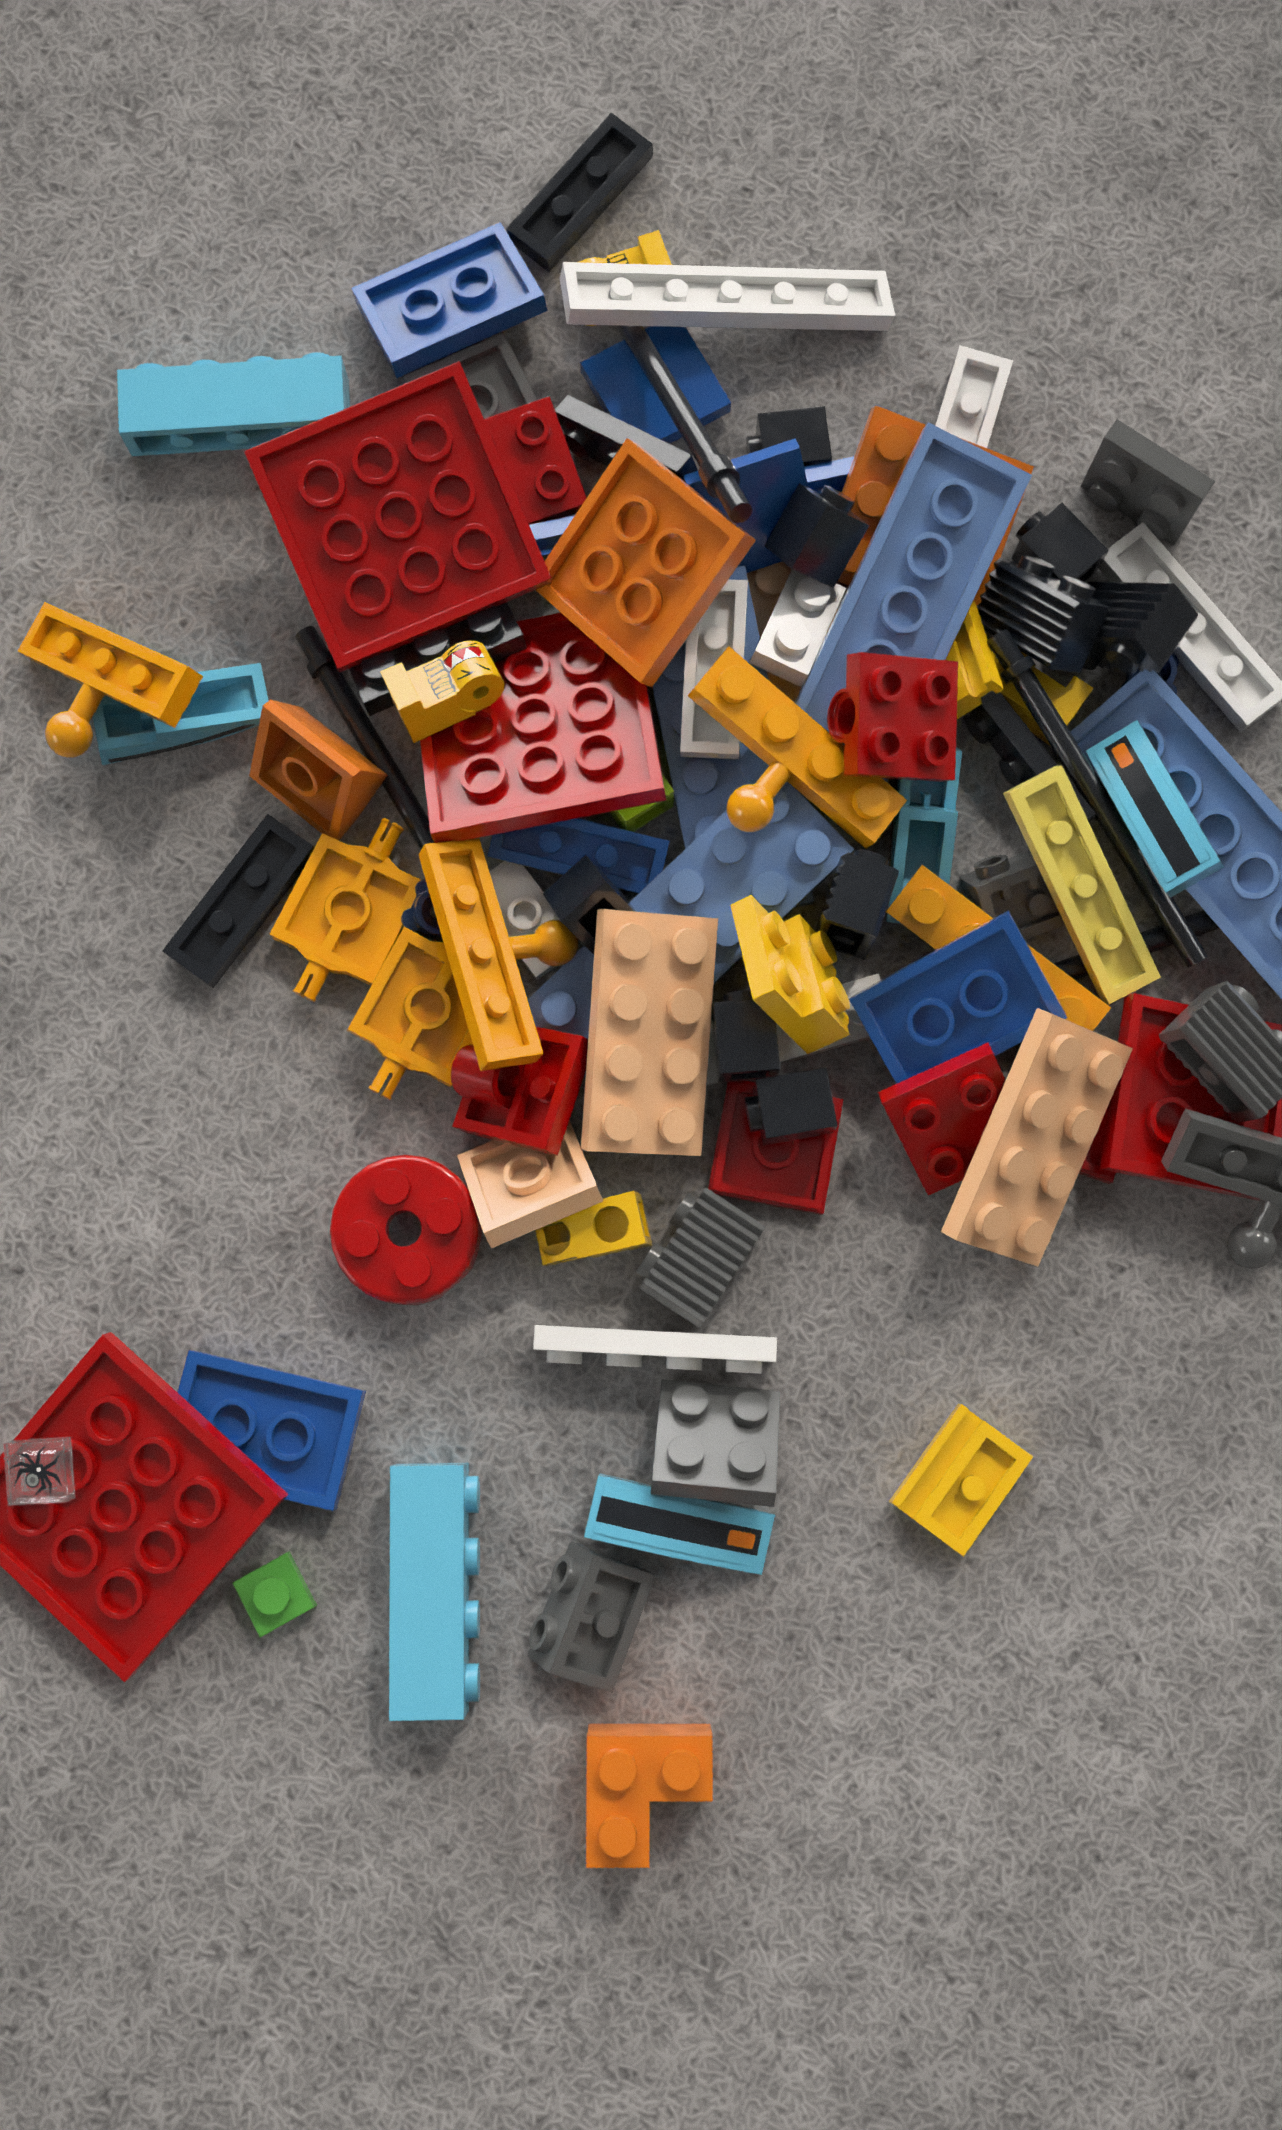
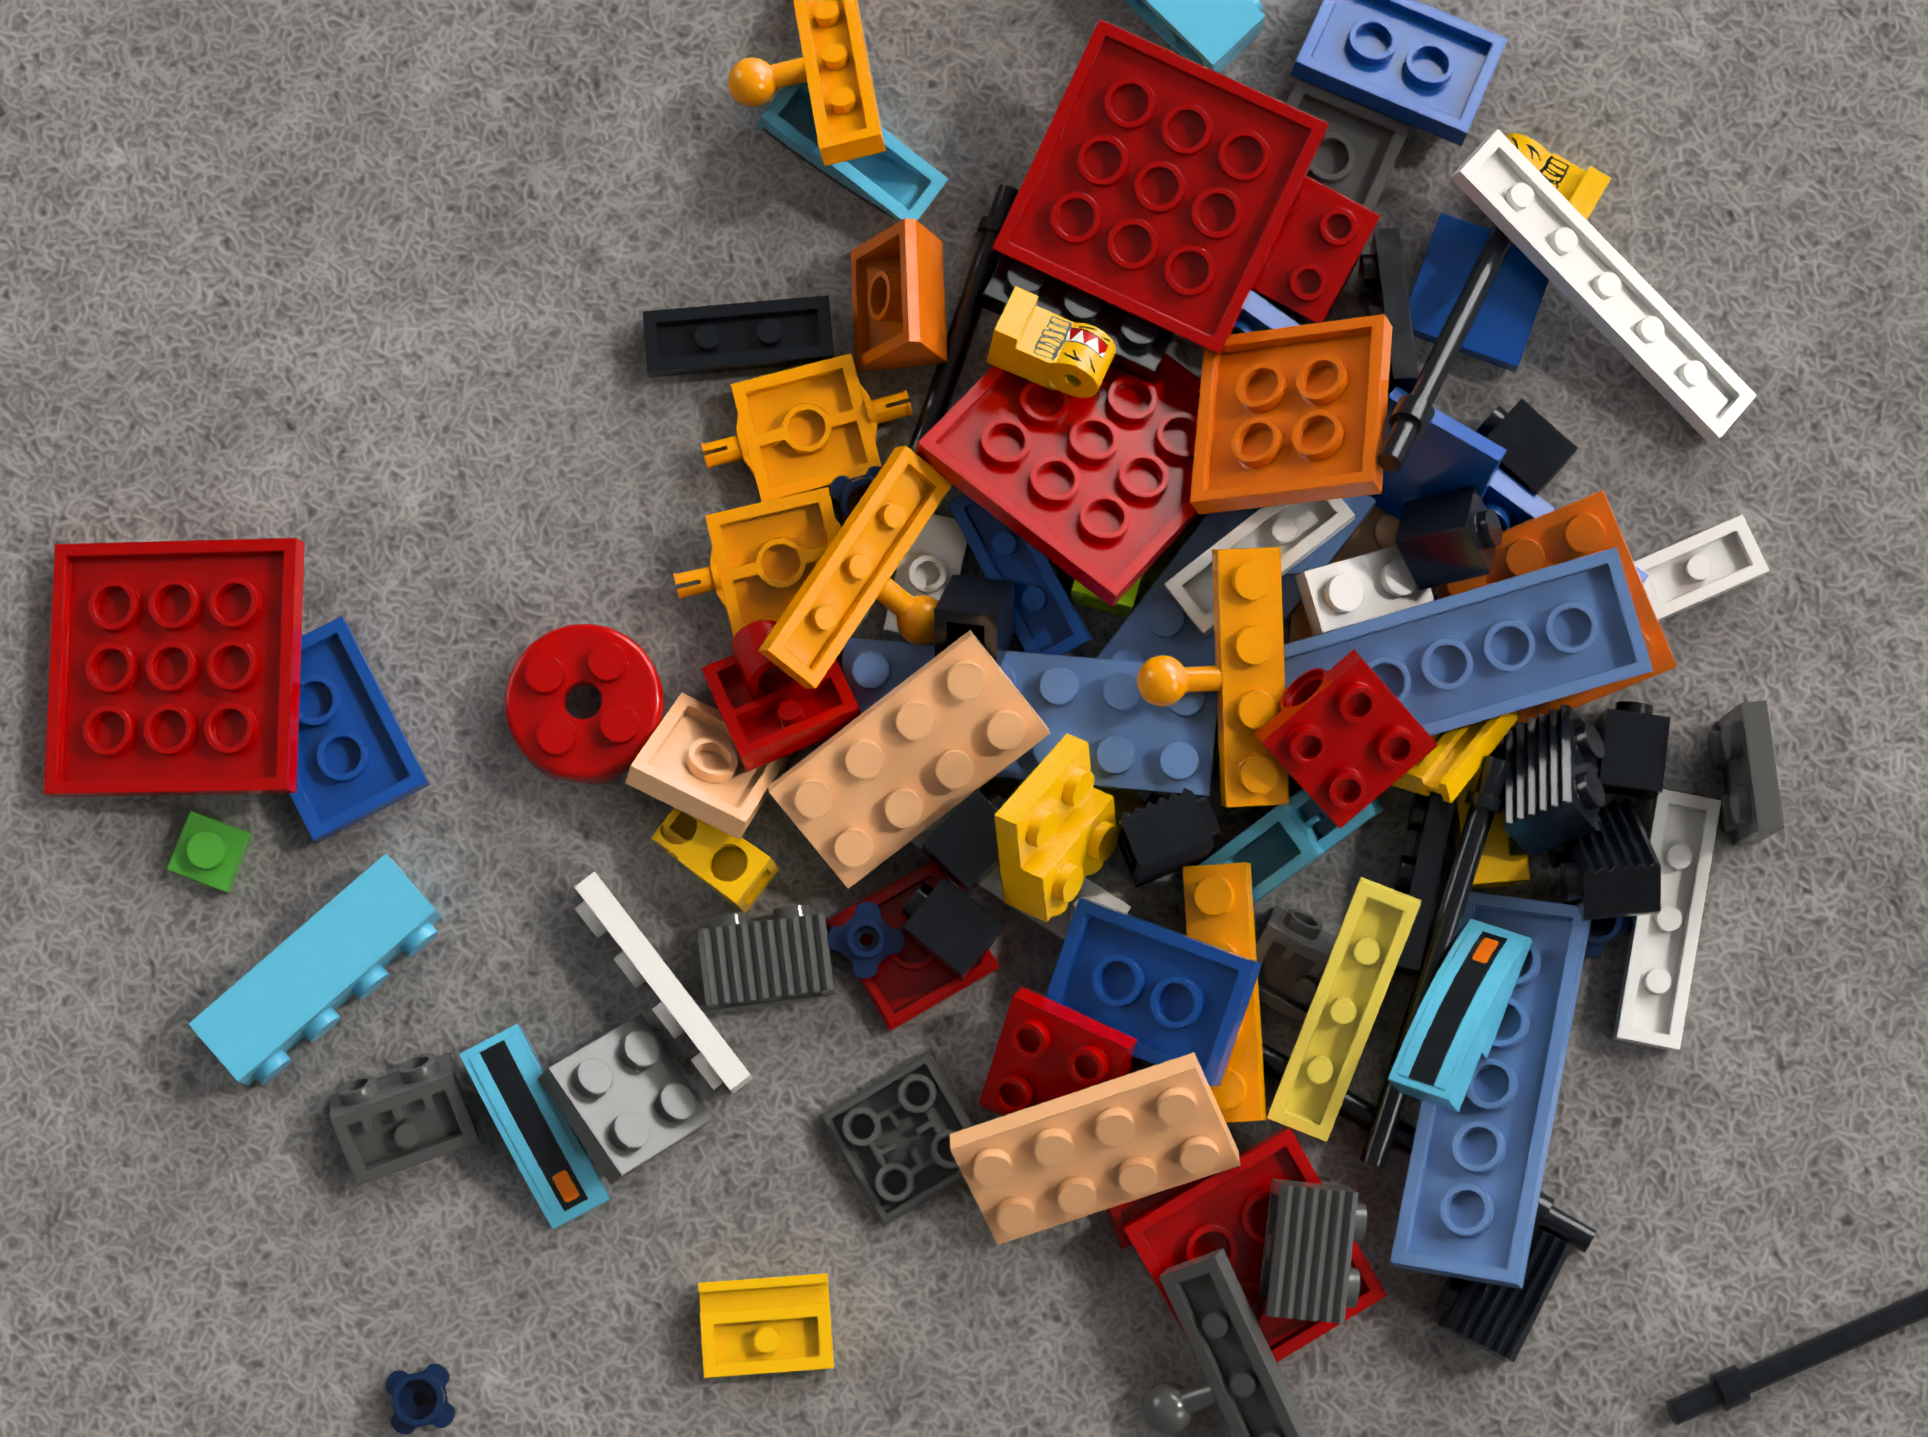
camera: 45 degrees right, 0 degrees up
(39, 1471) = (150, 583): clear tile -> none
(580, 192) = (1596, 80): black plate -> none
(628, 1771) = (304, 1249): orange brick -> none
(736, 1186) = (866, 958): none -> dark blue plate
(808, 1795) = (404, 1388): none -> dark blue plate
(905, 1269) = (900, 1137): none -> dark grey tile

